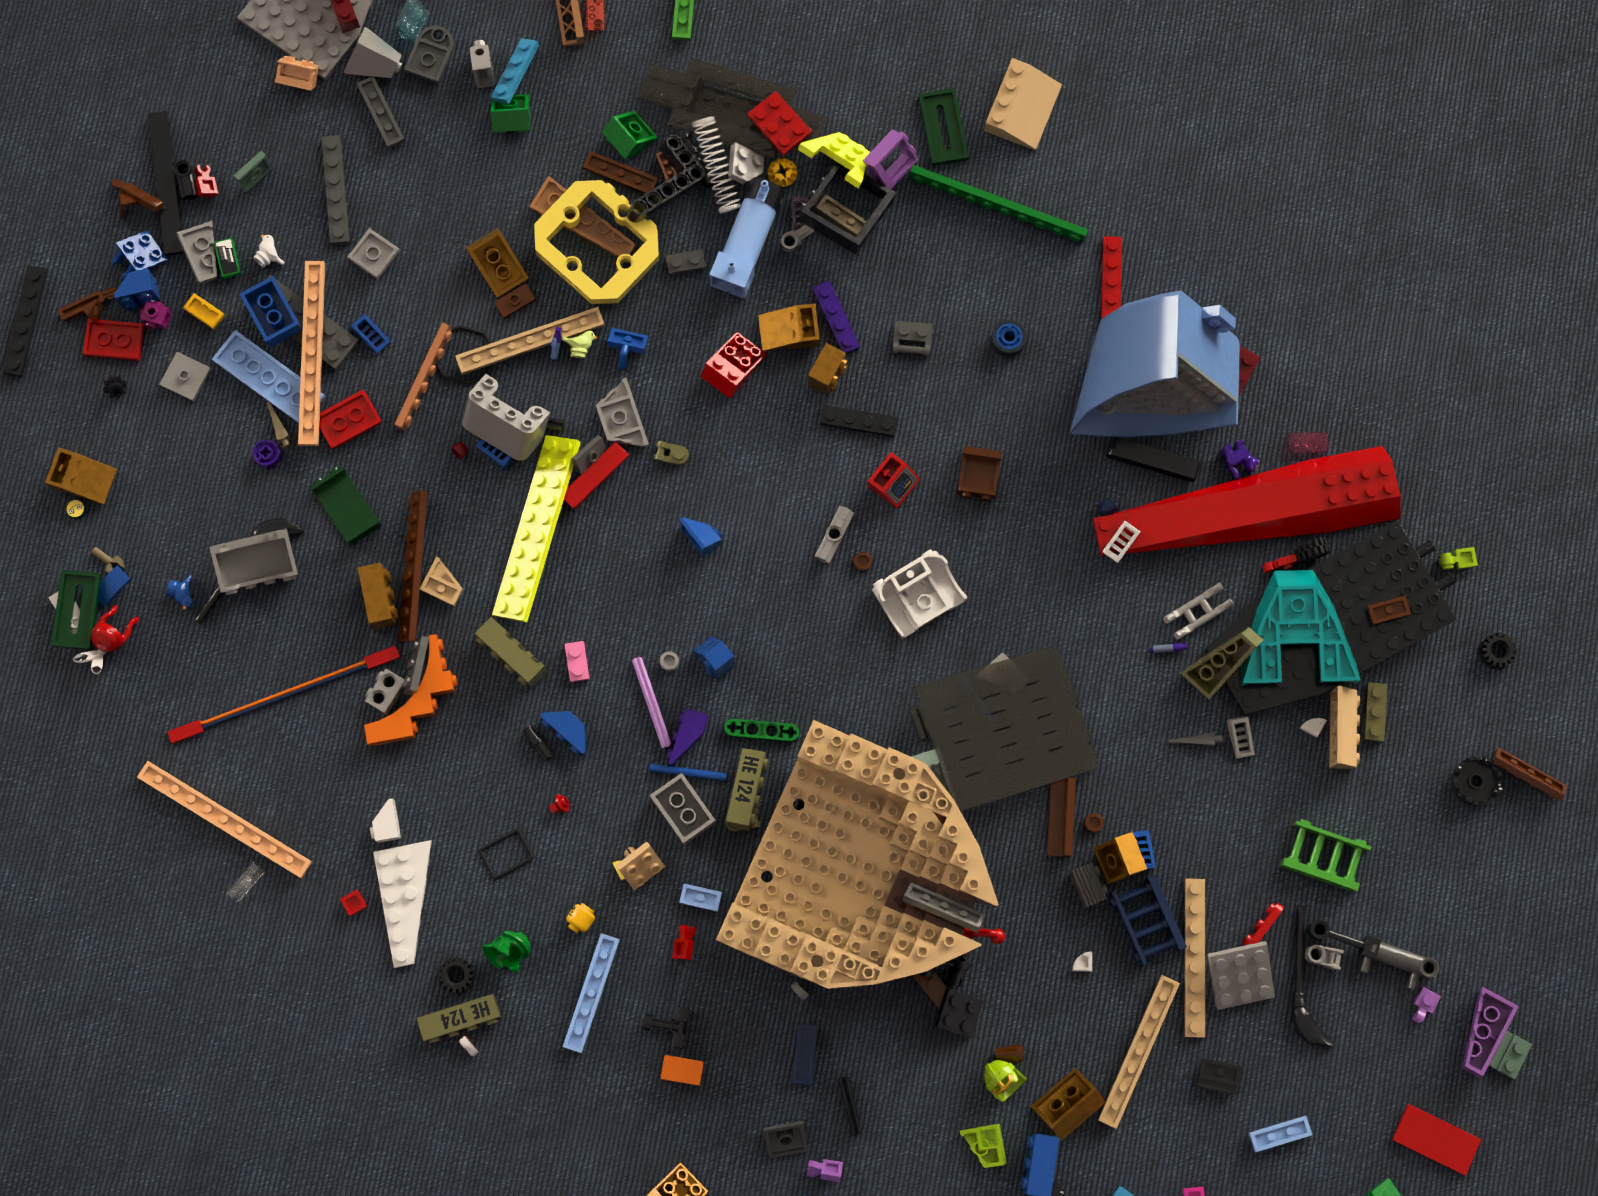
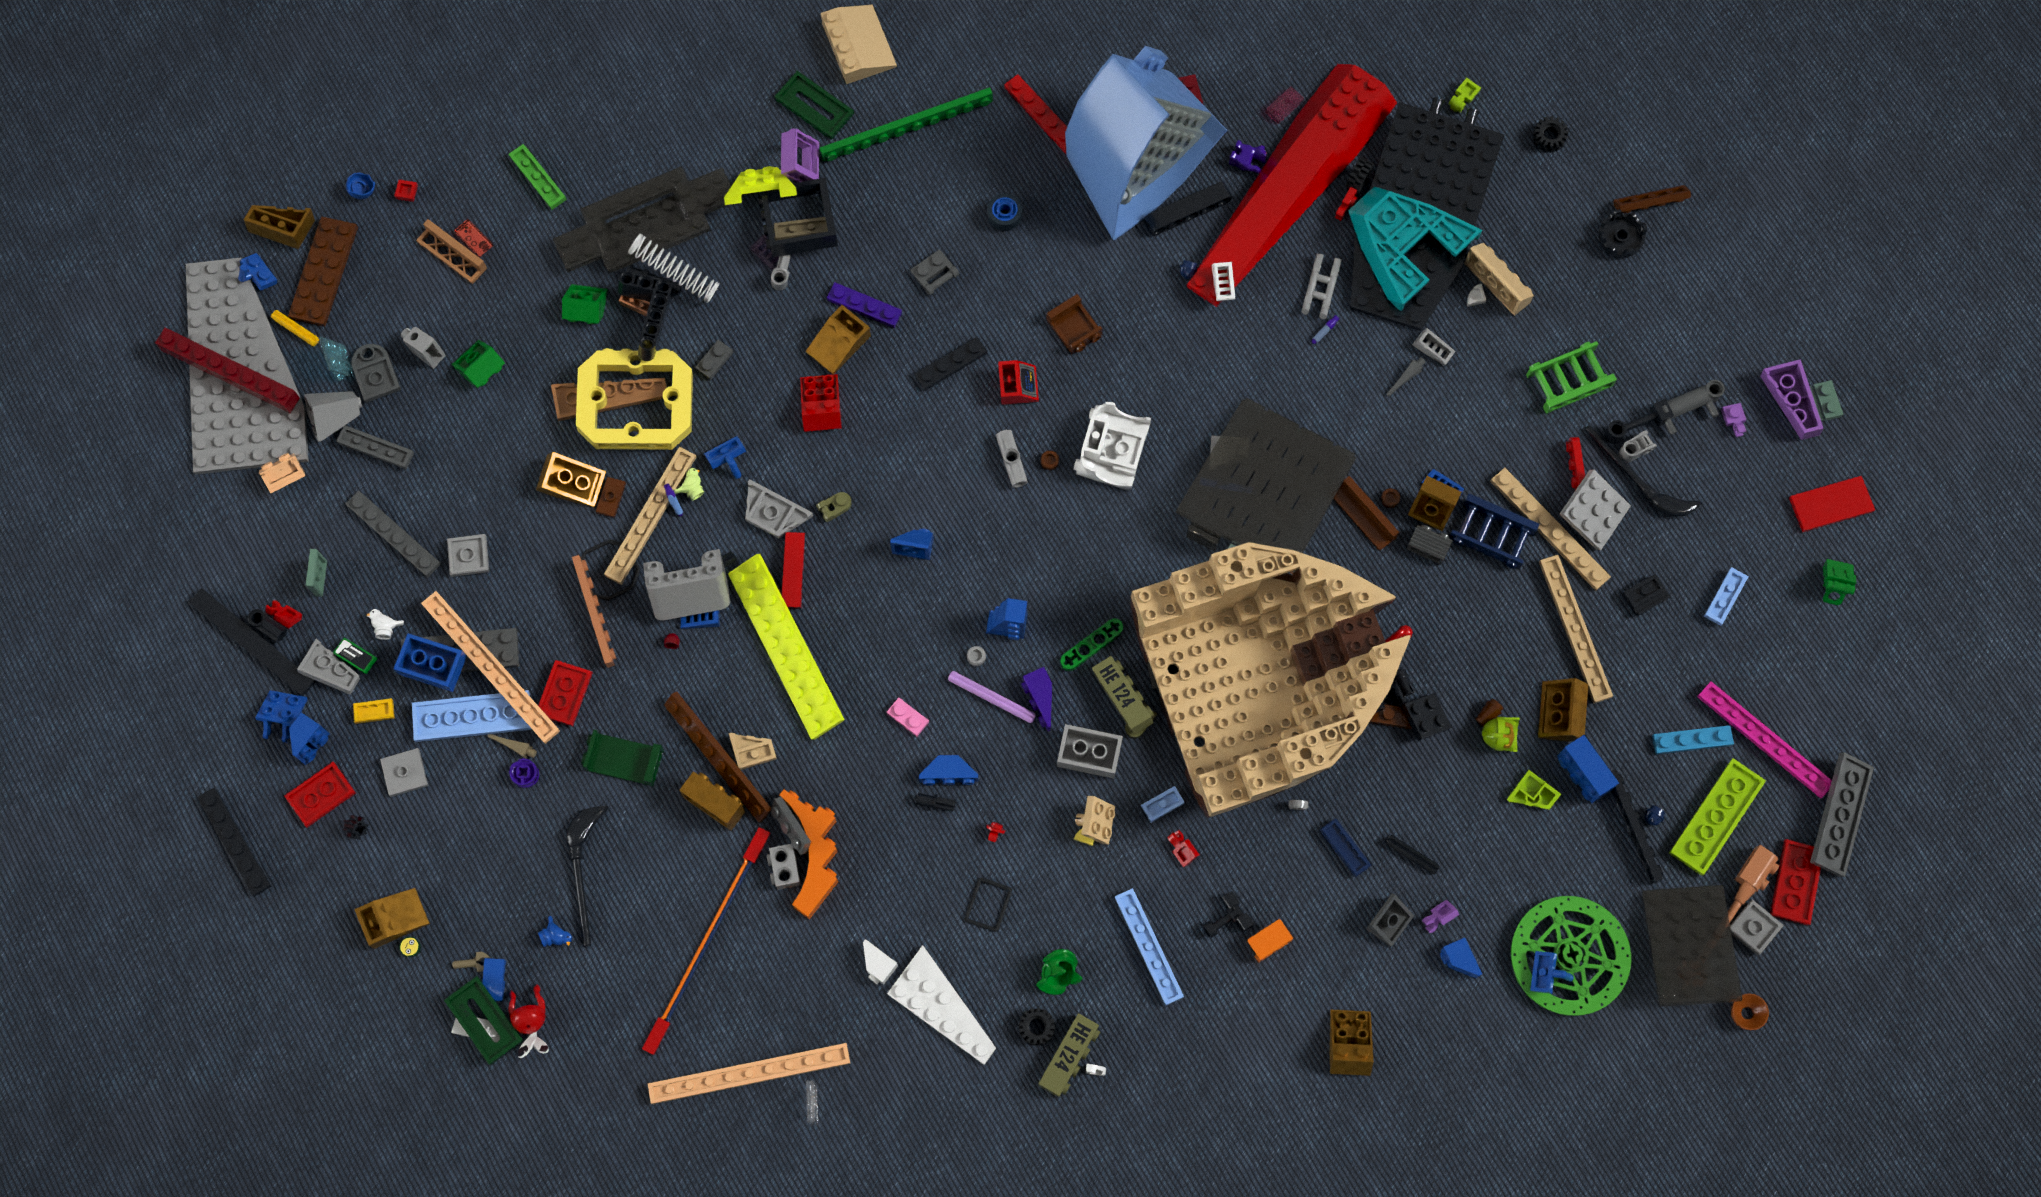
camera: 40 degrees left, 5 degrees down
(91, 305) = (277, 783): reddish brown piece -> none
(131, 195) = (233, 673): reddish brown piece -> none
(155, 315) = (337, 746): magenta brick -> none
(253, 561) = (592, 857): light grey windscreen -> none
(353, 903) = (908, 1044): red plate -> none
(359, 322) = (520, 623): blue slope -> none
(511, 653) = (853, 753): olive wedge -> none
(514, 71) = (453, 330): dark azure plate -> none
(580, 918) = (1089, 899): yellow head -> none
(589, 454) = (775, 558): dark grey plate -> none
(620, 173) = (604, 337): reddish brown plate -> none
(688, 772) = (1069, 721): blue bar -> none
(735, 265) = (752, 319): light blue piece -> none
(744, 164) = (693, 250): light grey plate -> none
(778, 179) = (727, 242): yellow gear -> none
(779, 123) = (693, 199): red plate -> none
(826, 369) = (895, 344): pearl gold brick -> none
(944, 907) = (1357, 634): dark grey plate -> none
(1083, 963) = (1477, 602): white tile -> none
(1220, 664) = (1373, 310): olive wedge -> none
(1375, 712) = (1508, 249): olive plate -> none
(1388, 610) = (1453, 167): reddish brown plate -> none

